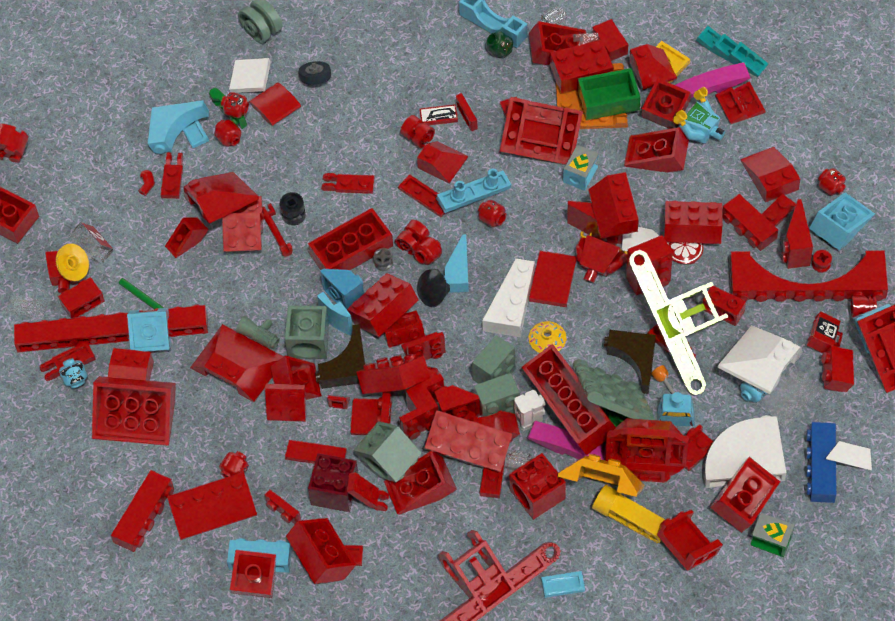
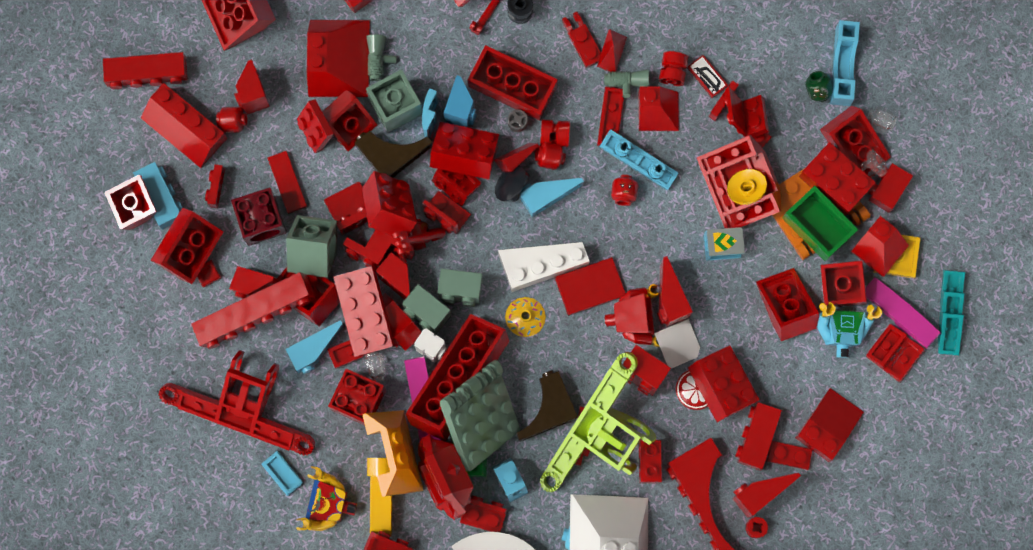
camera: 55 degrees right, 20 degrees up
(221, 432) = (250, 90): none -> red slope
(337, 401) = (350, 169): red slope -> none
(367, 492) = (263, 250): red hinge -> none
(373, 167) = (612, 51): none -> red slope
(385, 519) = (250, 282): none -> red slope
(404, 167) = (626, 80): none -> sand green piece
(411, 526) = (253, 310): none -> brick
(413, 272) = (514, 158): none -> red slope
(436, 364) = (406, 241): none -> red hinge
(473, 507) = (310, 350): none -> medium azure slope
(491, 98) = (748, 115): none -> red bracket
(547, 126) = (743, 181): none -> yellow dish
(609, 558) = (326, 503): none -> torso
(614, 206) = (681, 303): red slope -> none
(661, 374) = (543, 444): orange hinge -> none
(832, 181) = (852, 491): red head -> none
(841, 220) = (814, 523): medium azure slope -> none

